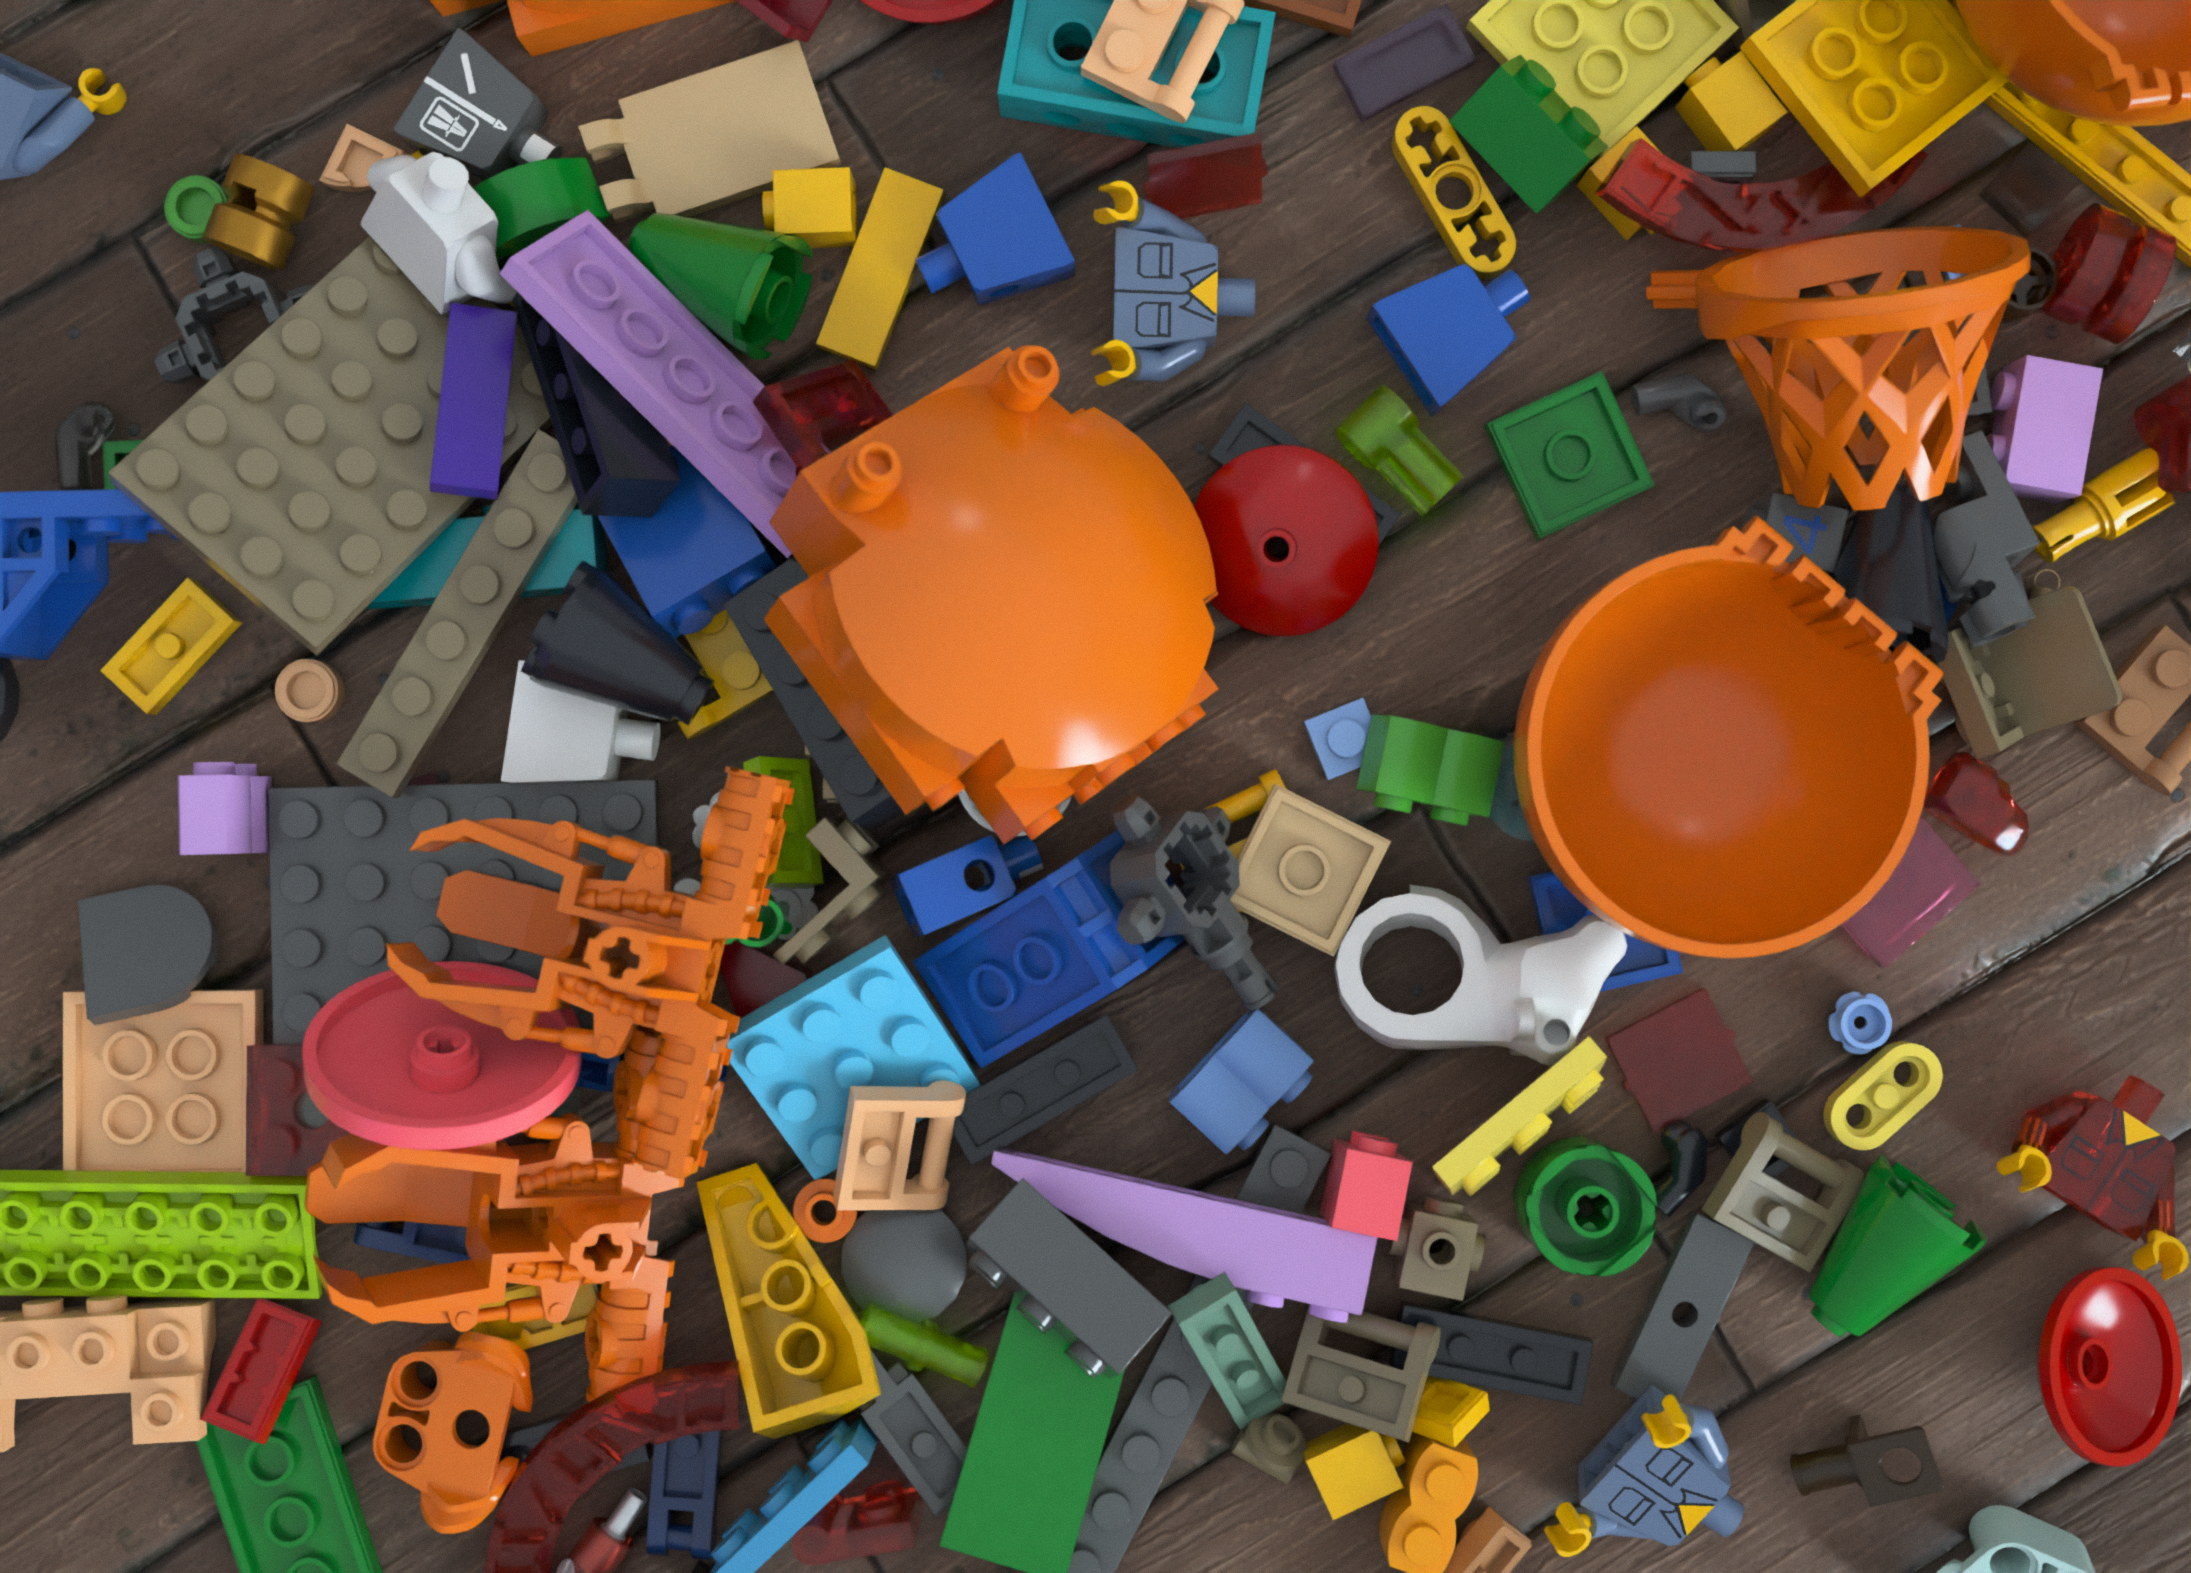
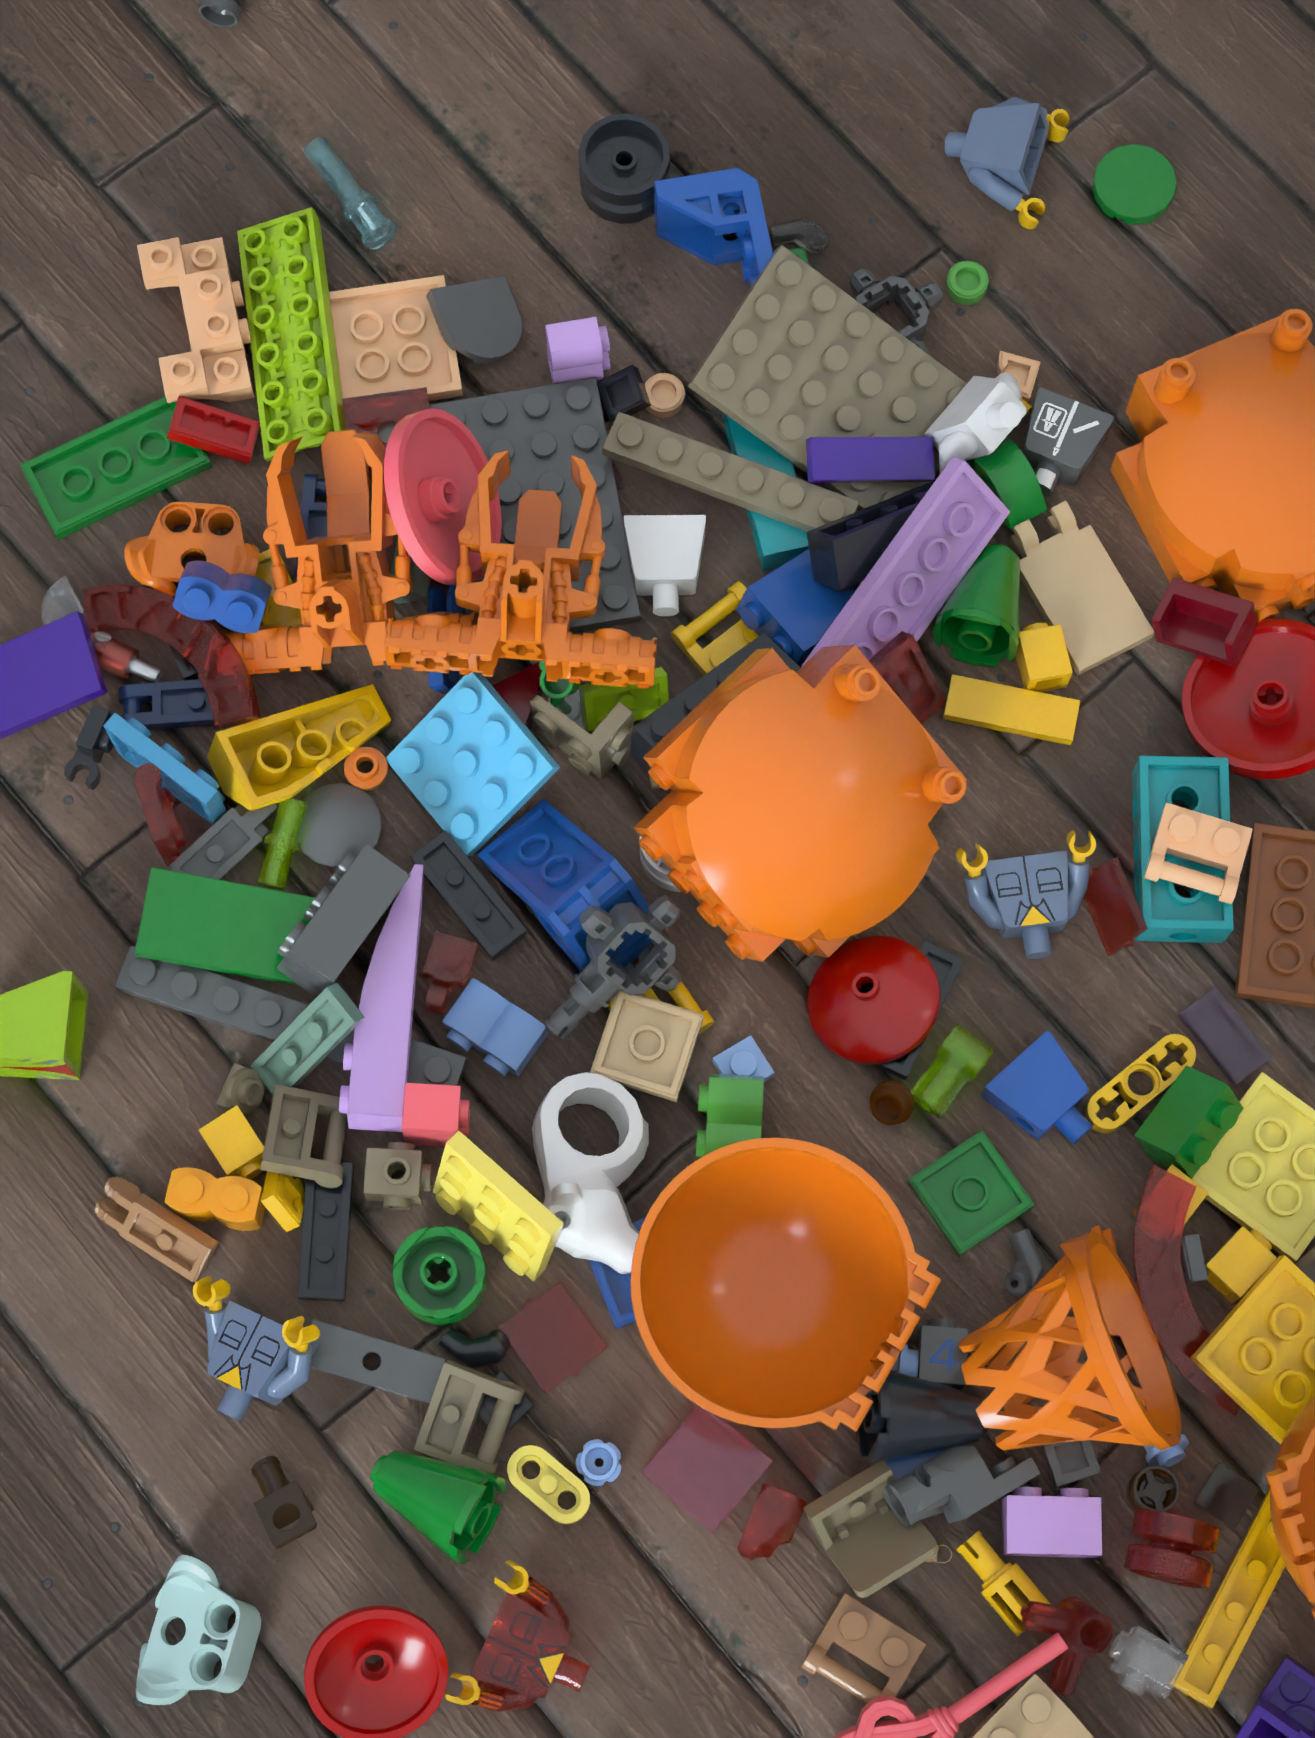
camera: 75 degrees right, 15 degrees down
(171, 646) = (678, 307): yellow plate -> none
(258, 212) = (970, 316): pearl gold wheel -> none
(299, 750) = (623, 393): none -> black tile
(536, 1408) = (211, 593): none -> blue brick
(614, 652) = (720, 567): black cone -> none
(879, 1145) = (416, 788): light nougat plate -> none
(938, 894) = (597, 800): blue torso -> none
(998, 238) = (1046, 780): blue torso -> none
(1132, 1129) = (448, 965): none -> clear red plate
(1432, 542) = (891, 1102): none -> reddish brown plate

